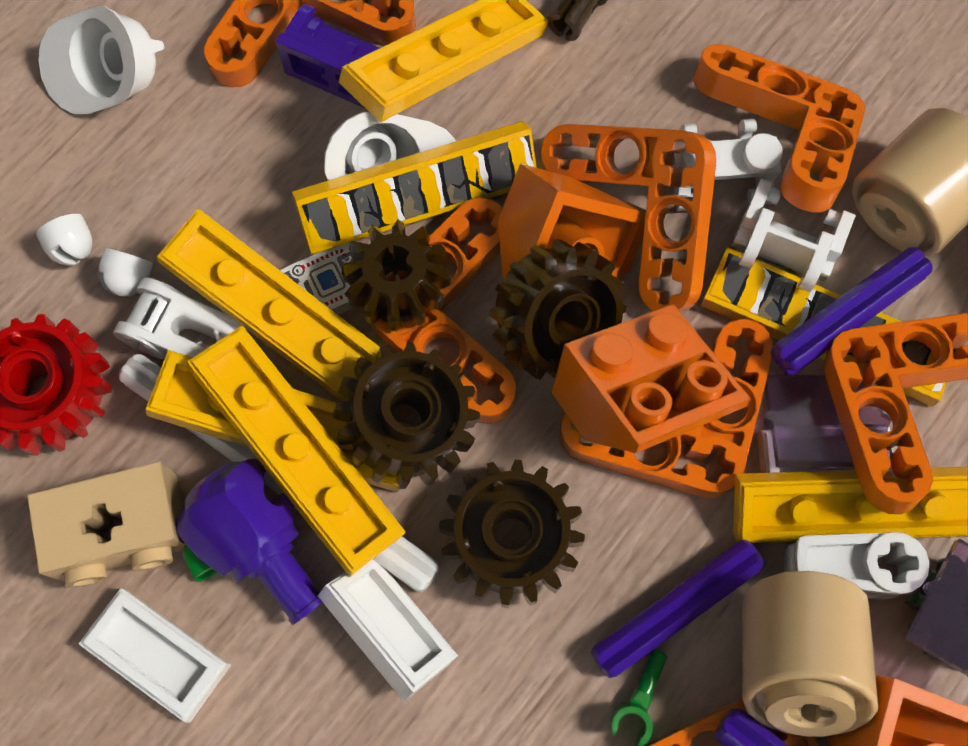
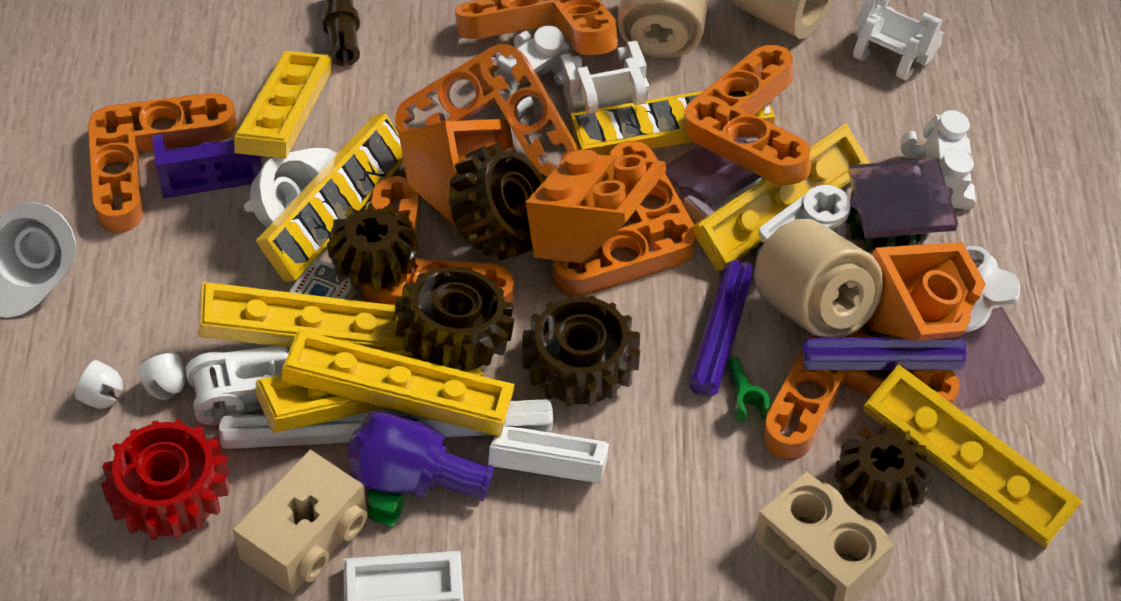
camera: 40 degrees left, 20 degrees down
(851, 310) = (680, 92): dark purple axle -> none

